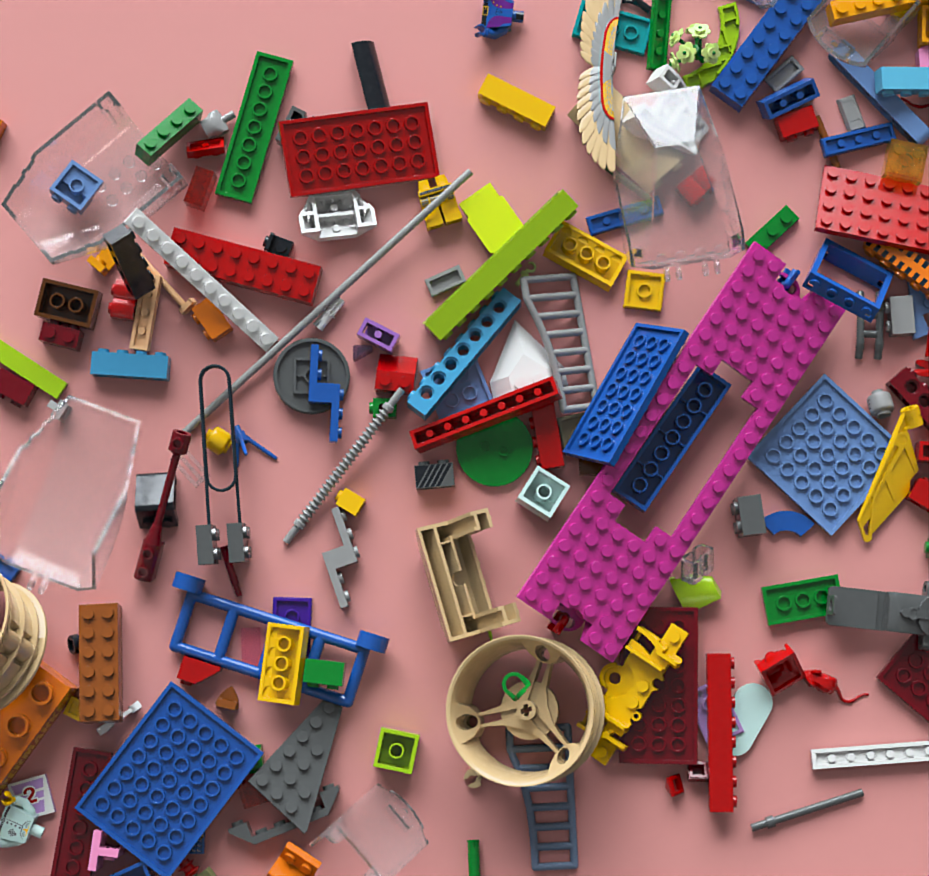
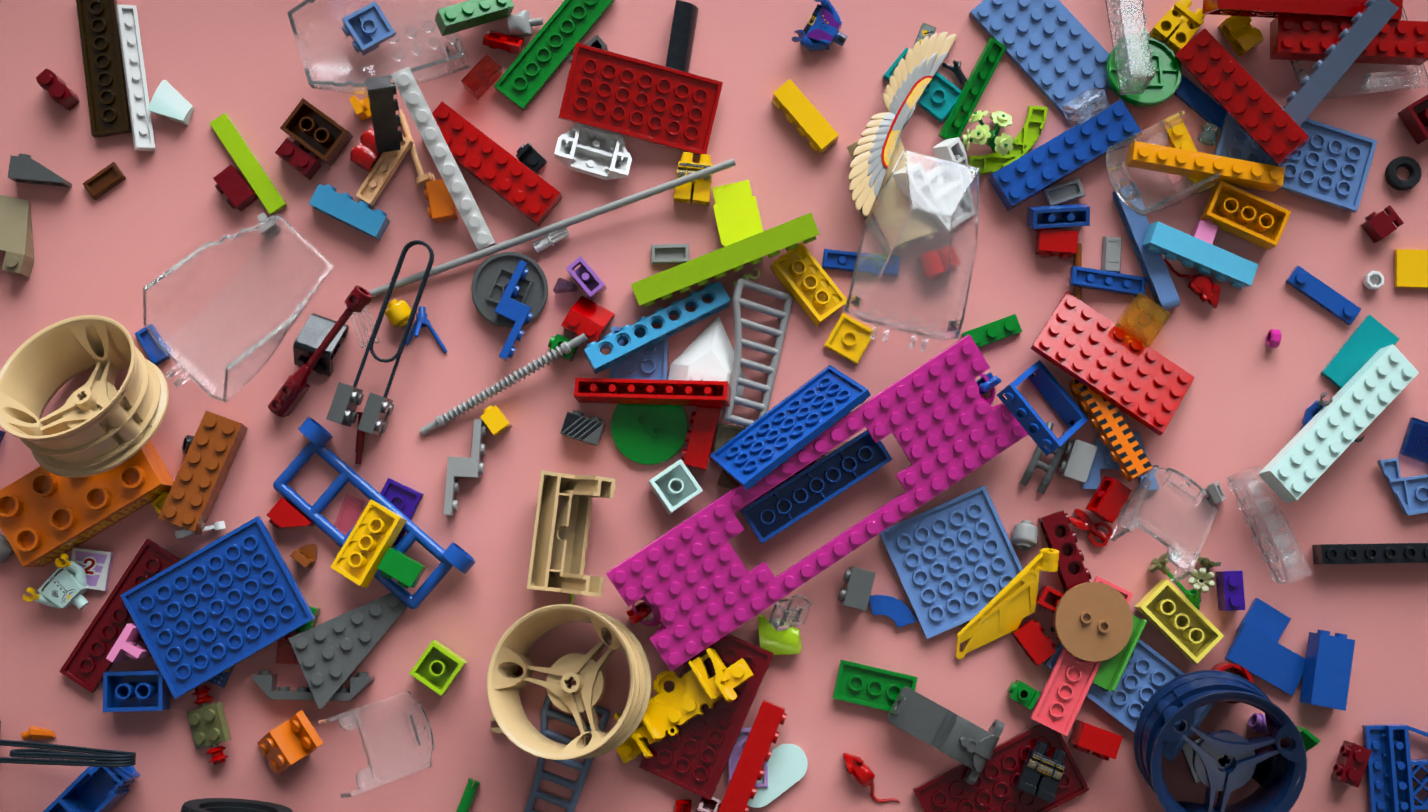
camera: 20 degrees right, 0 degrees up
(526, 682) = (576, 655): green piece -> none
(780, 670) = (825, 744): red brick -> none

